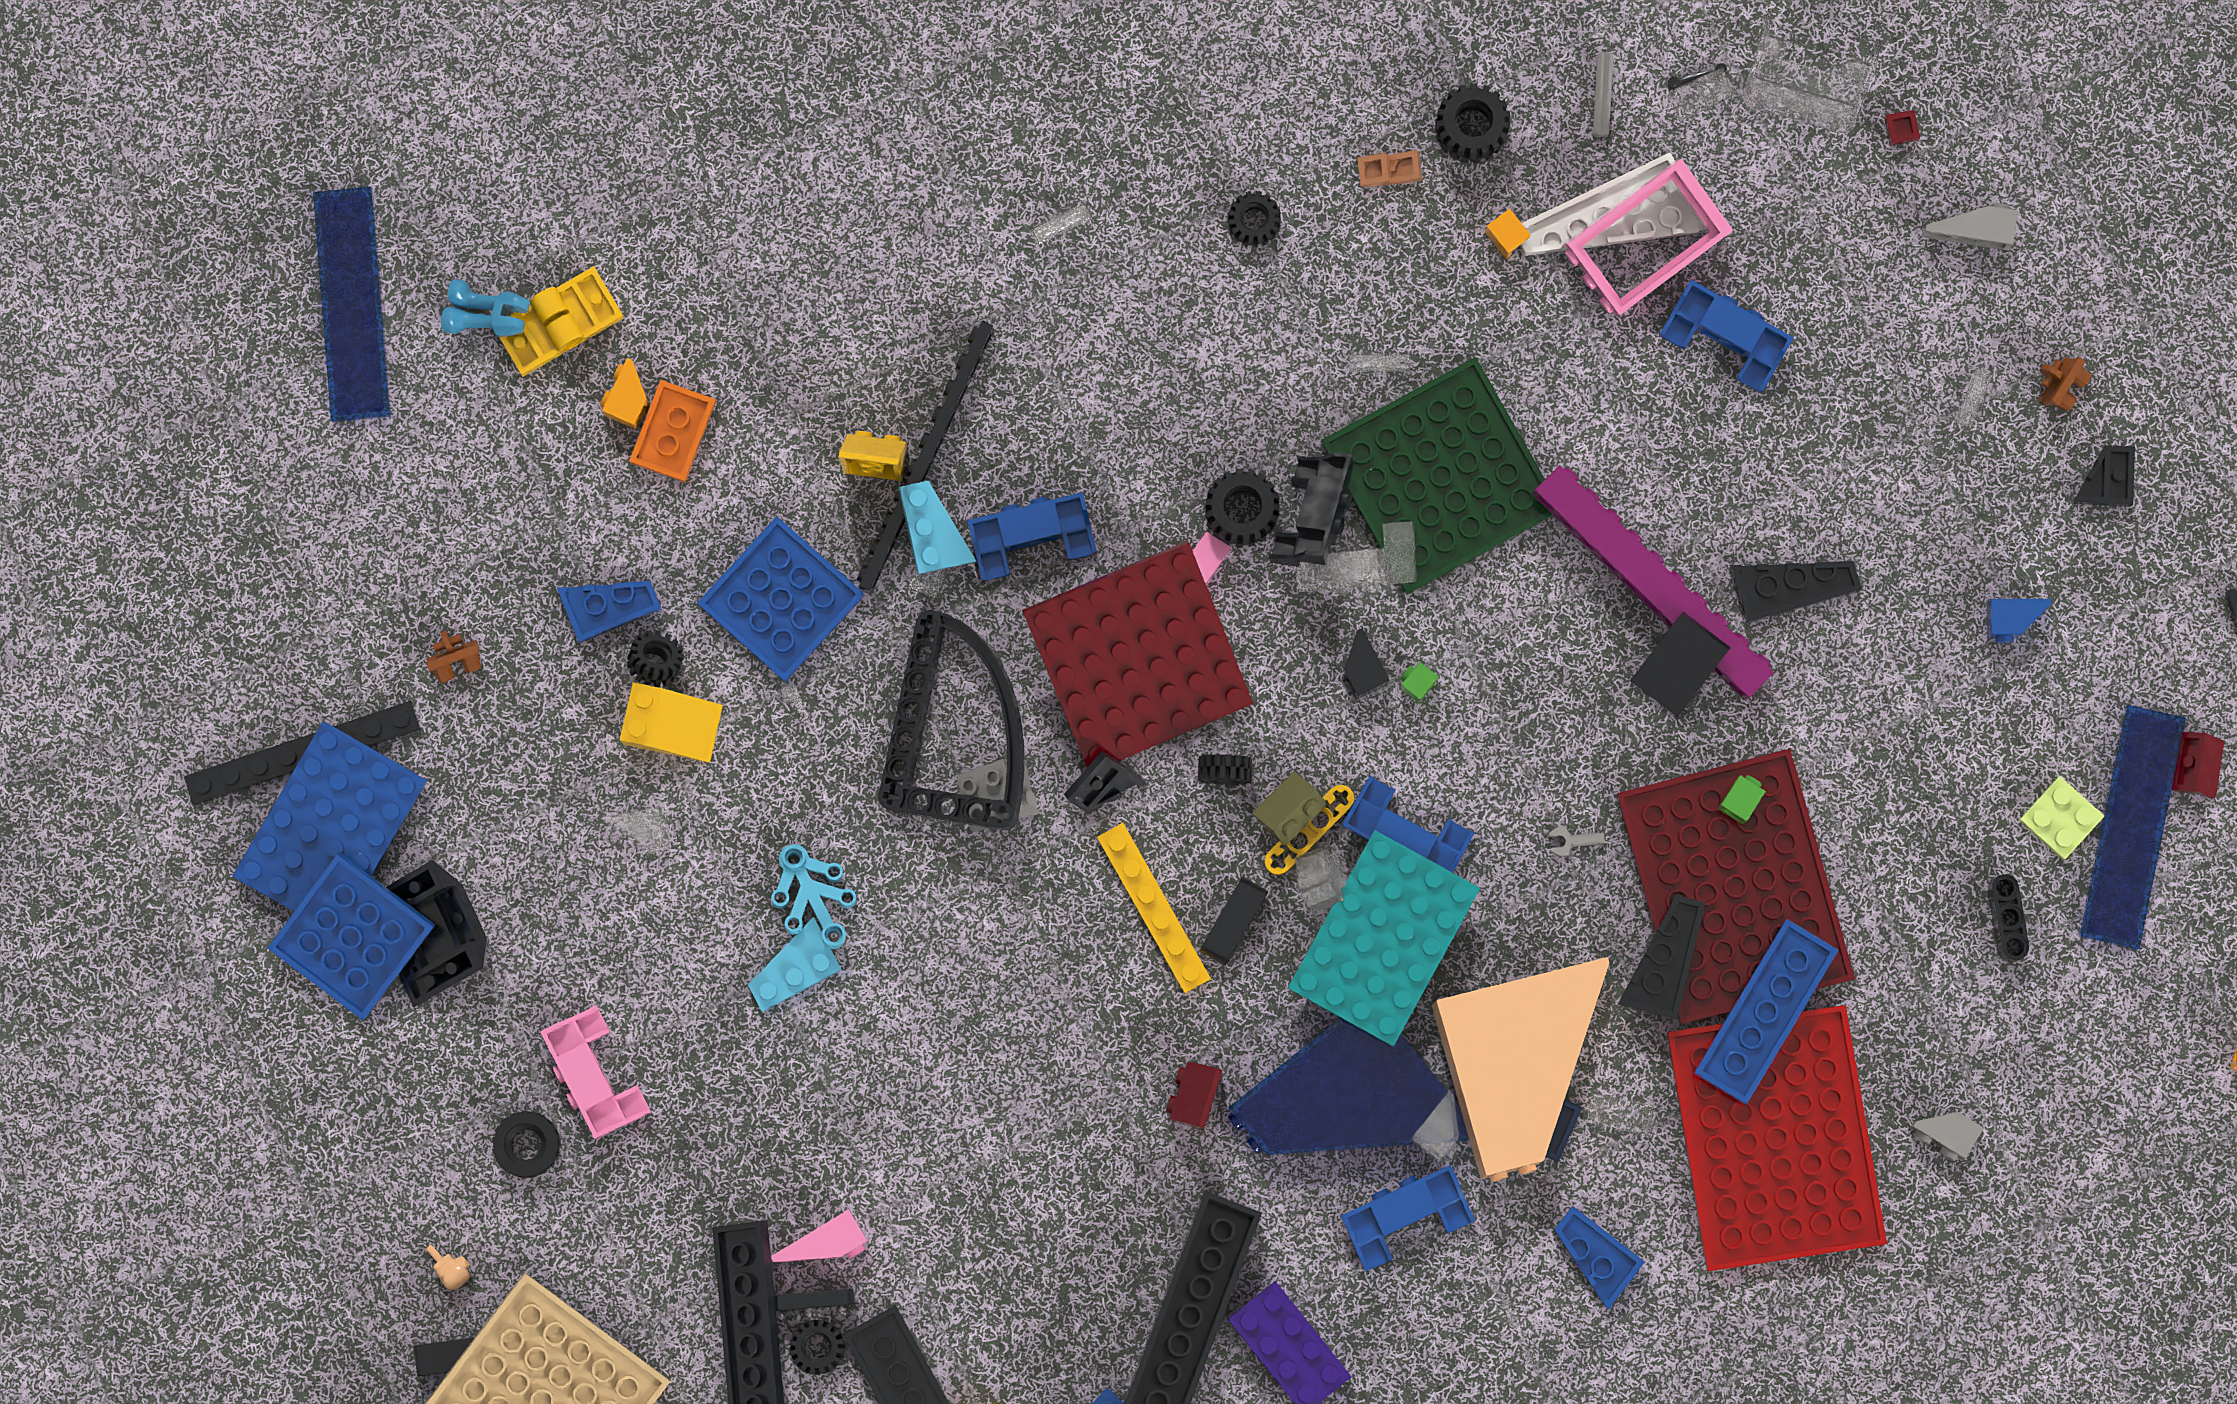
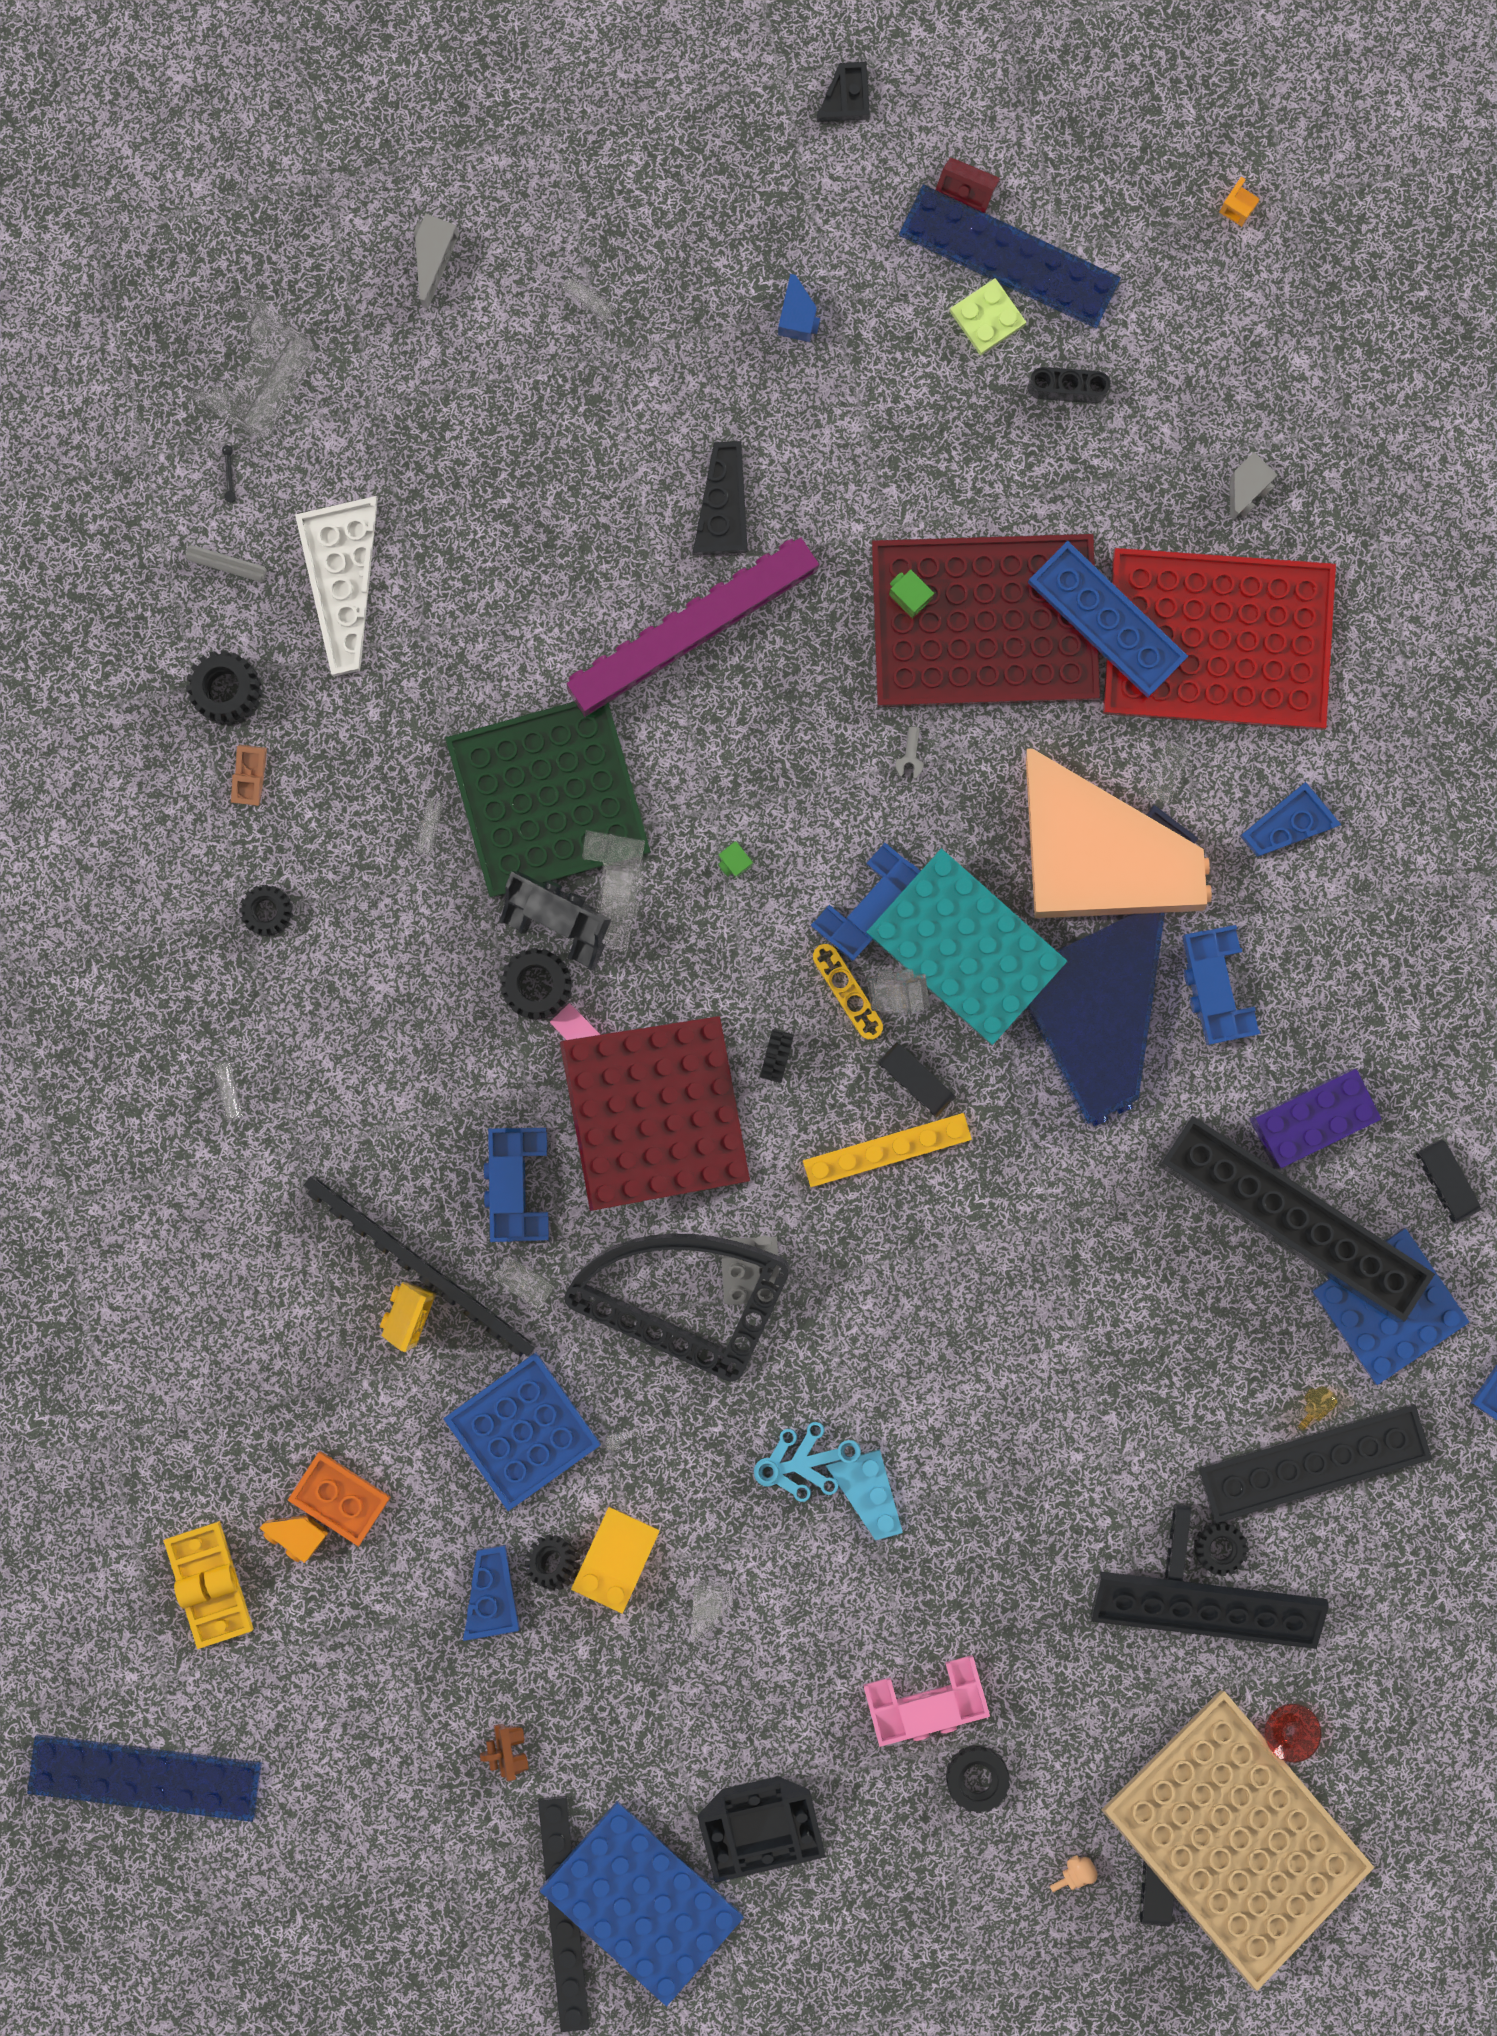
camera: 80 degrees left, 5 degrees up
(351, 936) = (749, 1906): blue plate -> none
(462, 297) = (162, 1671): dark azure piece -> none
(658, 576) = (473, 1541): clear hand -> none
(832, 1240) = (1129, 1518): bright pink slope -> none
(931, 531) = (491, 1277): medium azure wing -> none
(1102, 783) = (763, 1171): black wing -> none
(1195, 1095) = (1069, 1151): dark red slope -> none
(1289, 808) = (825, 1005): olive brick -> none
(1363, 668) = (710, 908): black slope -> none
(1439, 1131) = (1153, 937): clear slope -> none
(1507, 233) = (336, 681): light orange panel -> none
(1664, 968) = (1046, 699): black wing -> none
(1680, 664) = (773, 619): black tile -> none
(1700, 203) = (351, 496): bright pink door -> none
(1701, 94) = (247, 474): clear slope -> none
(1730, 326) = (472, 498): blue bracket -> none
(1902, 127) = (322, 300): dark red plate -> none
(2059, 379) = (591, 217): dark orange hips -> none
(2110, 478) = (690, 196): black wing -> none

